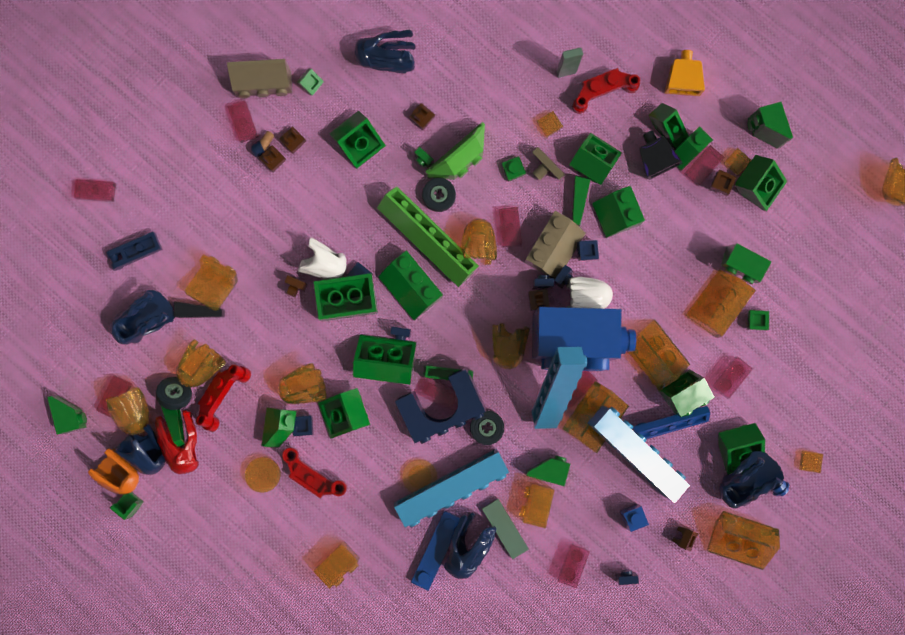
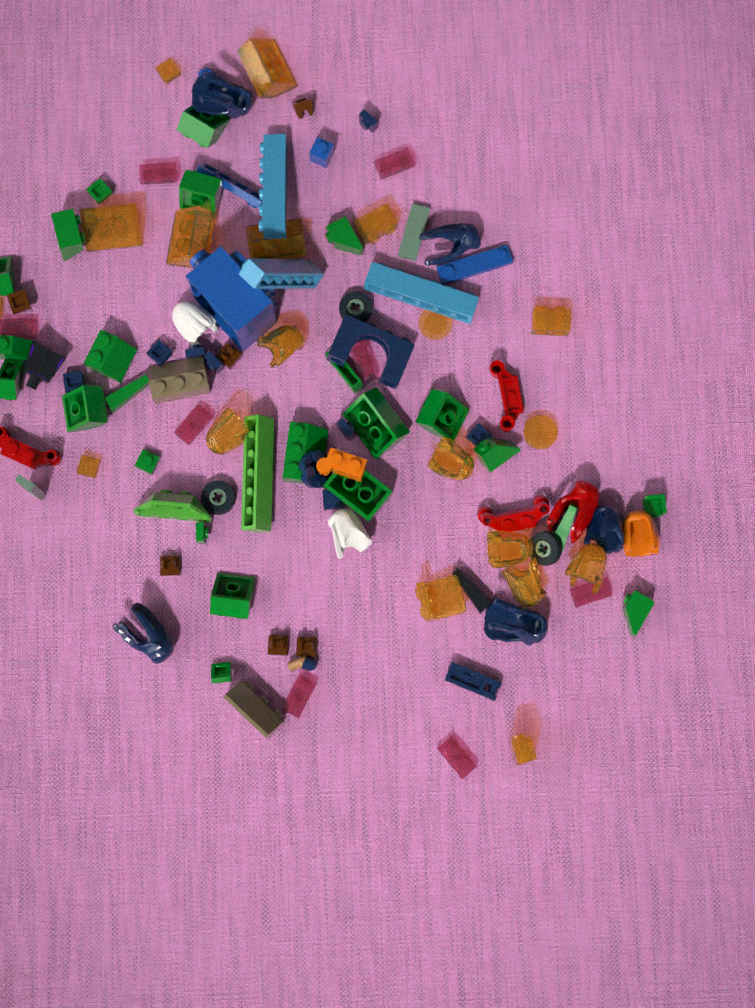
camera: 135 degrees left, 5 degrees down
(48, 237) = (522, 749): none -> clear yellow brick
(161, 353) = (525, 584): none -> clear yellow hair
(295, 285) = (384, 537): reddish brown tile -> none
(370, 299) = (342, 464): none -> orange hinge
(381, 281) = (307, 465): none -> dark blue plate
(546, 166) = (123, 439): dark tan tile -> none
(623, 169) = (73, 381): none -> dark blue plate

